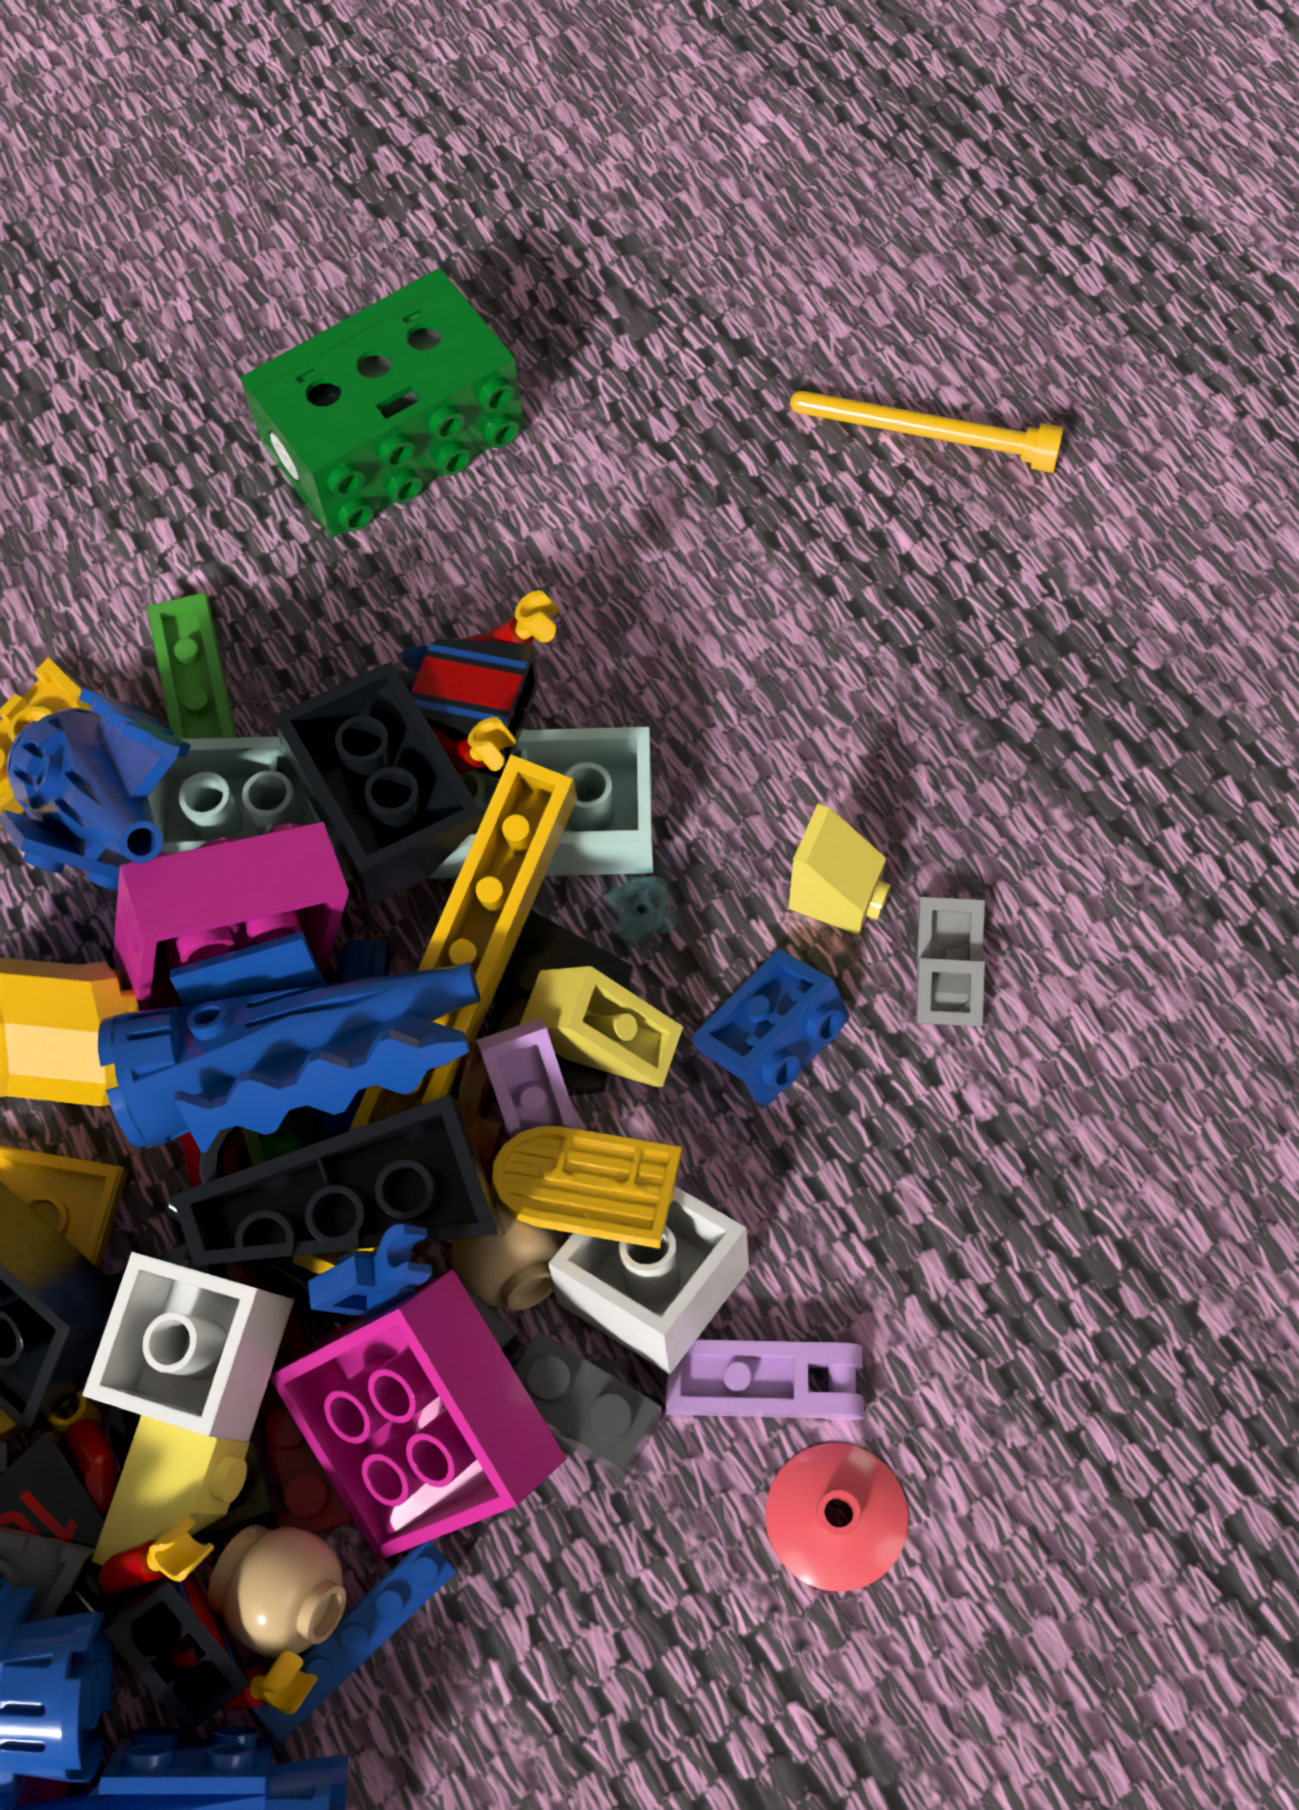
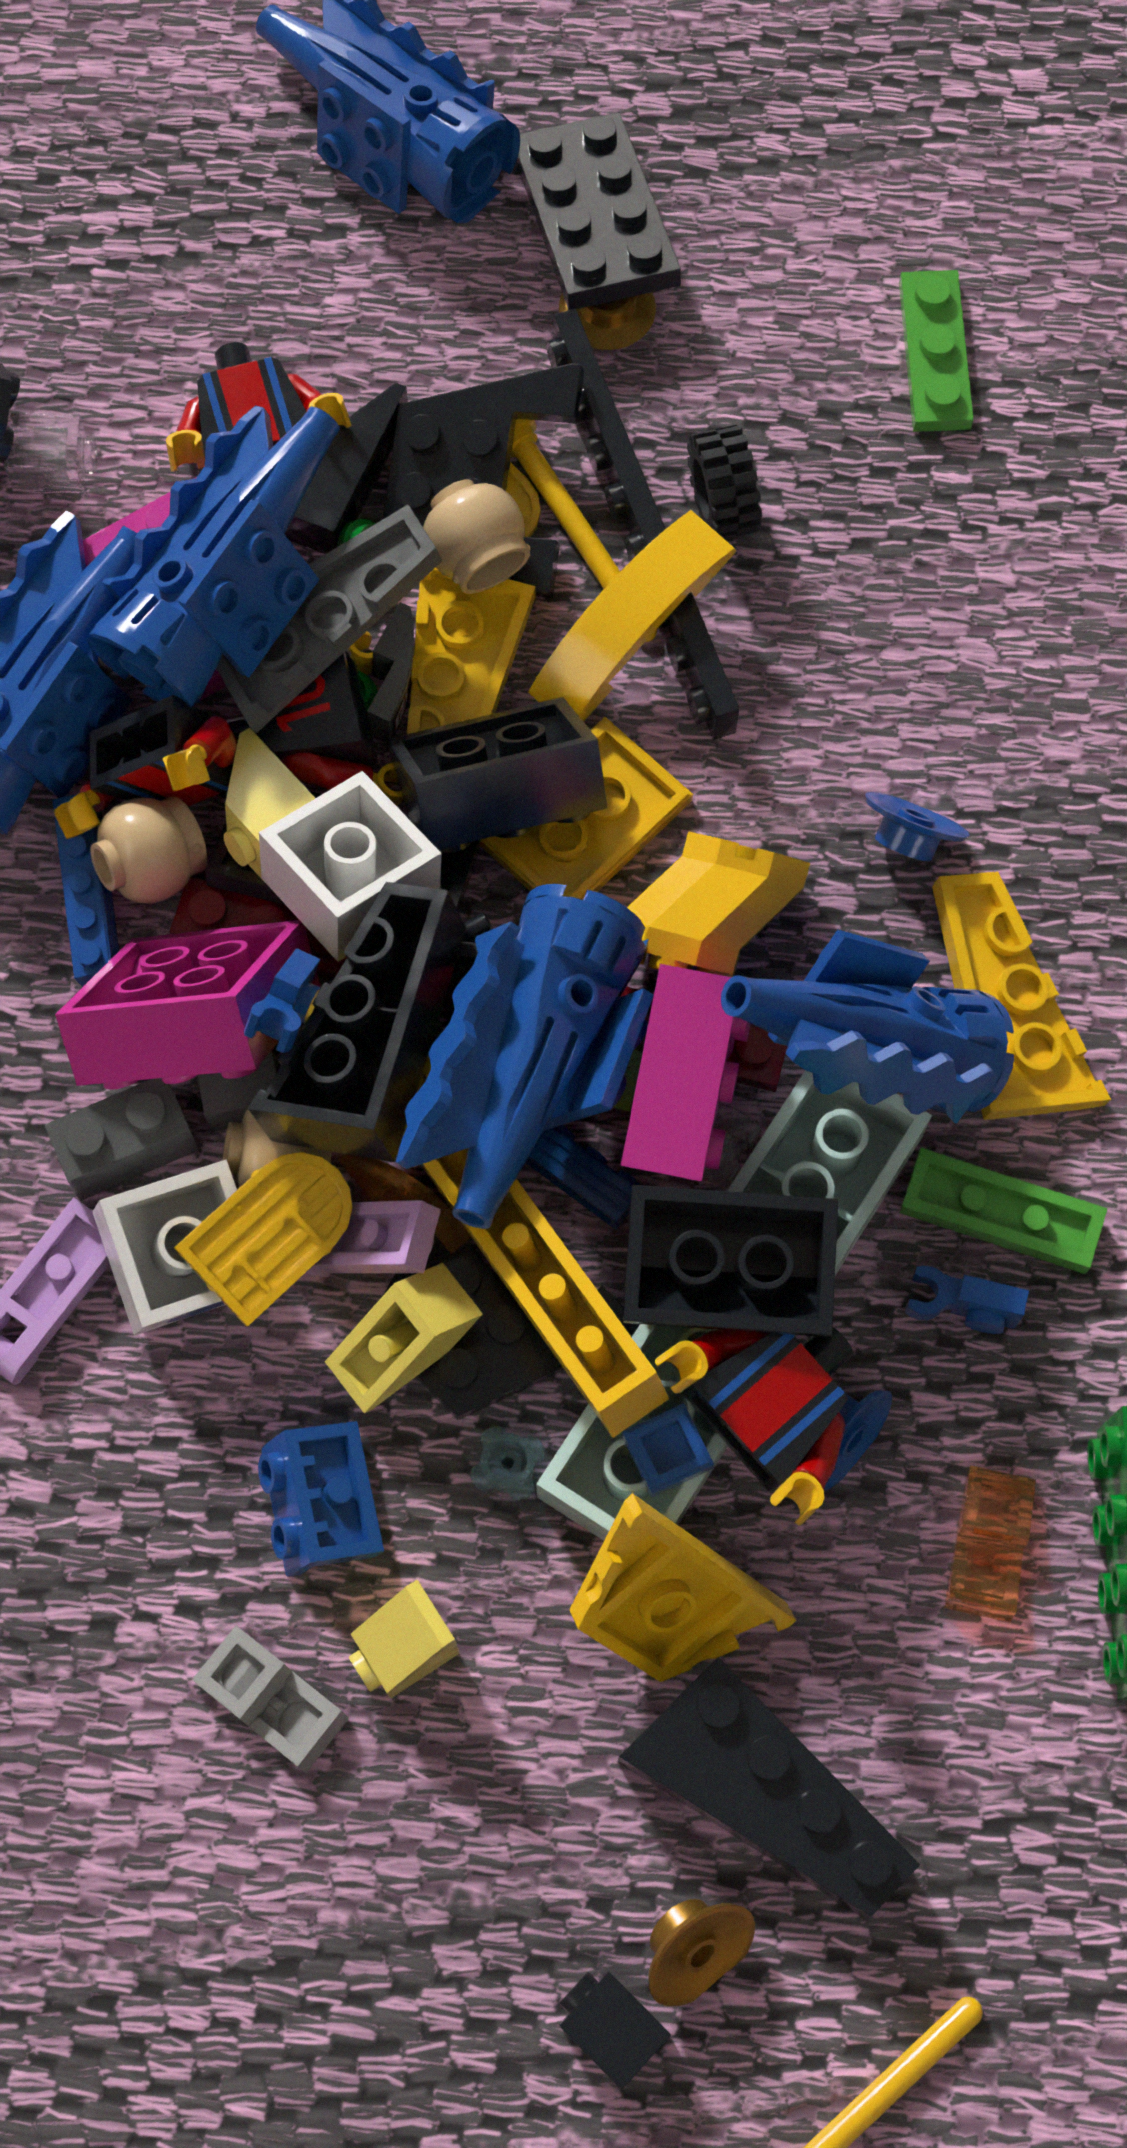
camera: 120 degrees right, 5 degrees up
(283, 648) = (982, 1302): none -> blue plate
(454, 559) = (990, 1544): none -> clear orange slope
(563, 751) = (667, 1450): none -> blue tile
(671, 706) = (668, 1596): none -> yellow wing
(752, 599) = (760, 1783): none -> black wedge
(892, 569) = (696, 1948): none -> pearl gold piece
(988, 584) = (611, 2026): none -> black brick

